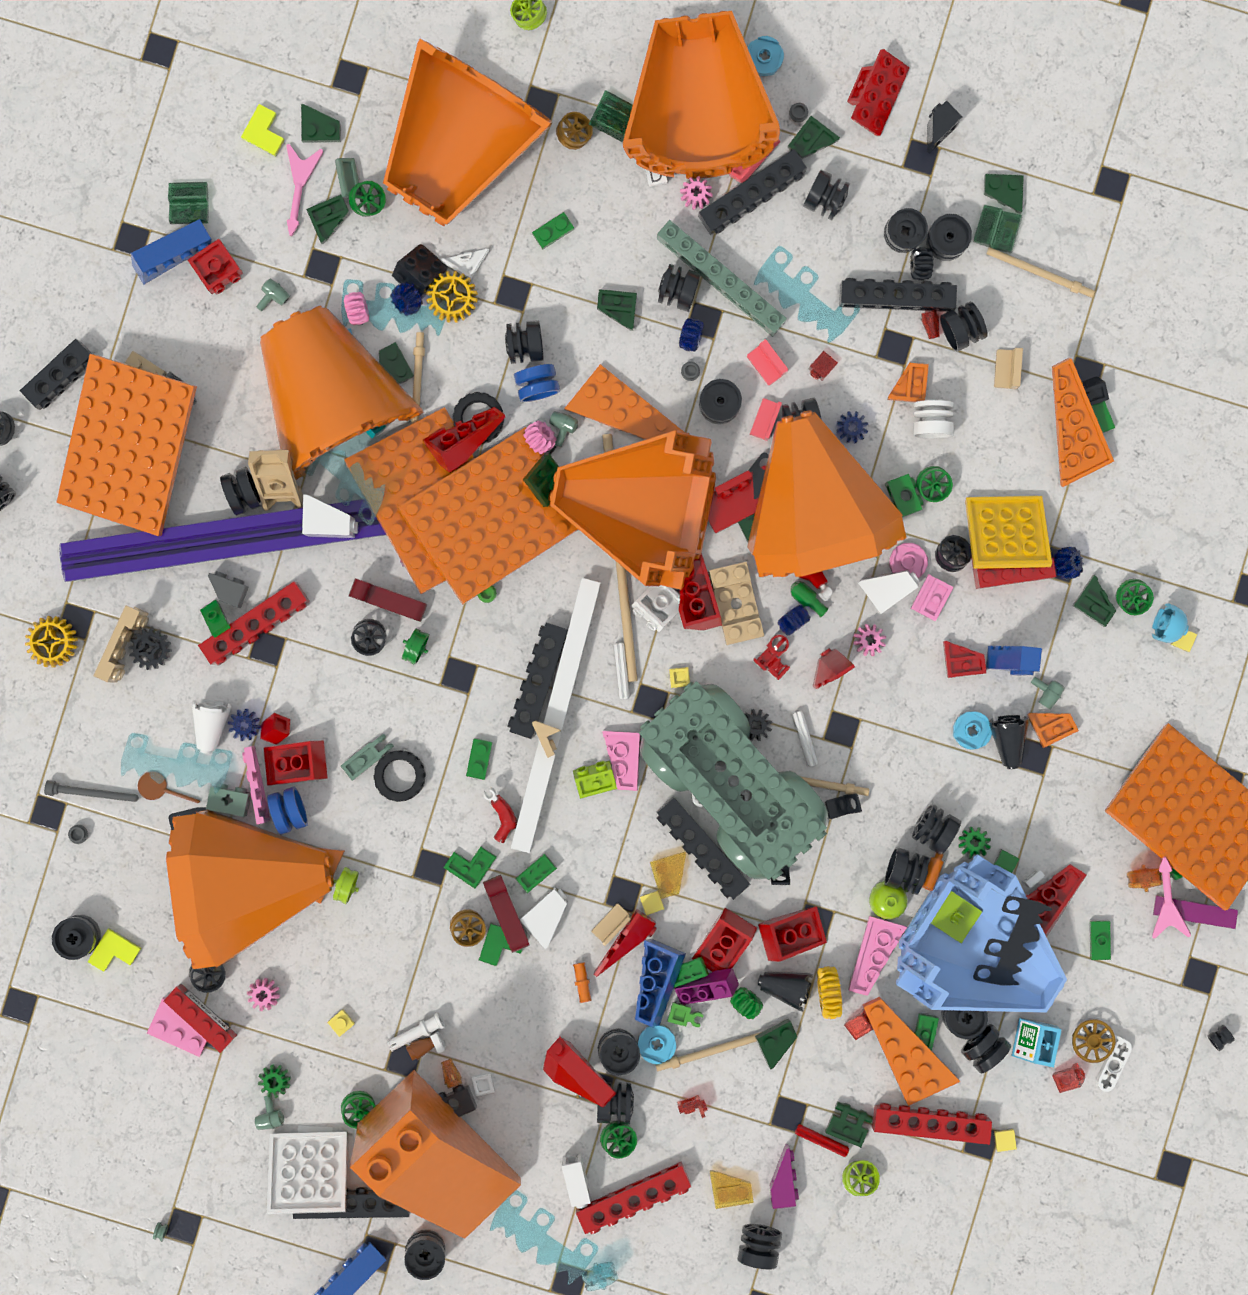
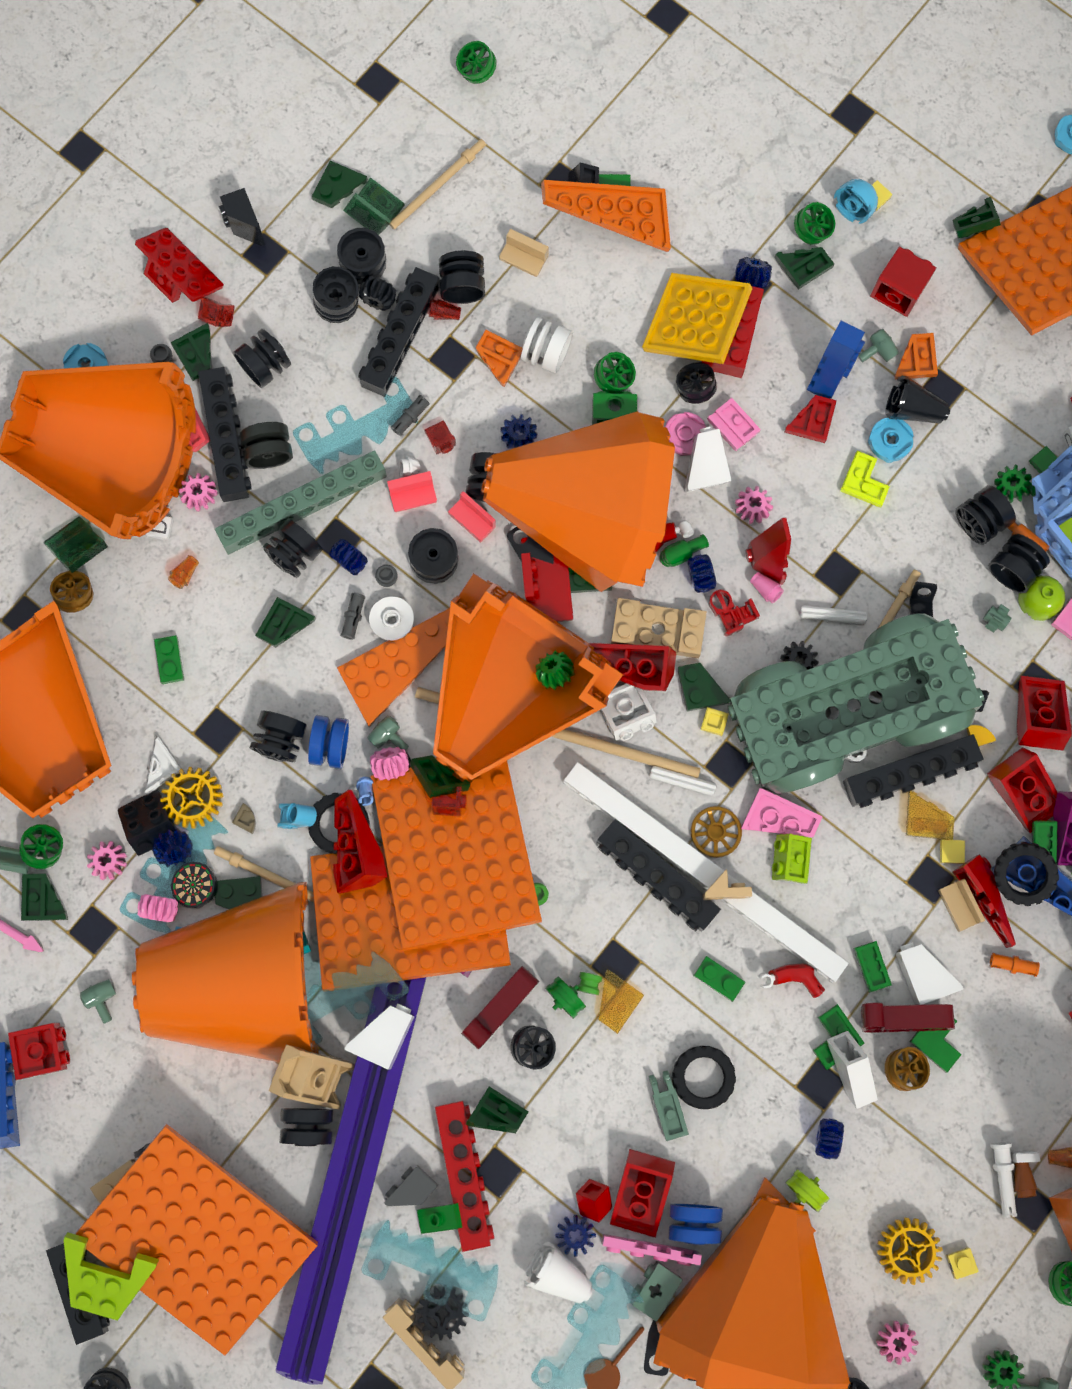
camera: 70 degrees left, 10 degrees down
(64, 392) = (101, 1288): none -> lime wing
(180, 639) = (445, 1270): none -> clear light blue piece
(309, 630) = (497, 1113): none -> dark green wing
(321, 966) = (929, 1243): none -> yellow gear
(370, 250) = (108, 868): none -> bright pink gear
(386, 328) = (194, 885): none -> black tile
(391, 888) = (829, 1138): none -> clear blue gear
(430, 688) = (617, 1001): none -> clear yellow wing
(434, 660) = (589, 983): none -> bright green wheel
(450, 886) = (853, 1069): none -> white slope
(453, 345) = (245, 819): none -> dark tan tile
(470, 383) = (296, 816): none -> medium azure piece
(512, 427) = (365, 790): none -> light blue pin
(522, 494) = (447, 806): none -> clear red bracket
(592, 712) = (716, 832): none -> pearl gold wheel
(625, 210) = (182, 573): none -> clear orange cone
(633, 964) = (1026, 898): none -> black tyre
(646, 359) = (352, 616): none -> dark grey pin
(658, 380) = (386, 609): none -> white dish
(665, 535) = (554, 670): none -> green gear
(701, 655) = (700, 688): none -> dark green wing
(754, 891) = (982, 735): none -> yellow tile
(755, 230) = (266, 445): none -> pearl dark grey wheel
(786, 351) = (408, 466): none -> white plate
(805, 677) = (767, 587): none -> bright pink cone
(830, 334) = (410, 415): none -> dark grey pin
(850, 140) = (216, 313): none -> clear red bracket
(855, 870) = (997, 618): none -> sand green gear
(924, 717) = (860, 485): none -> neon yellow tile
(1114, 689) = (903, 281): none -> red slope
(1161, 258) = (468, 55): none -> green wheel
(1195, 730) = (977, 220): none -> dark green wing

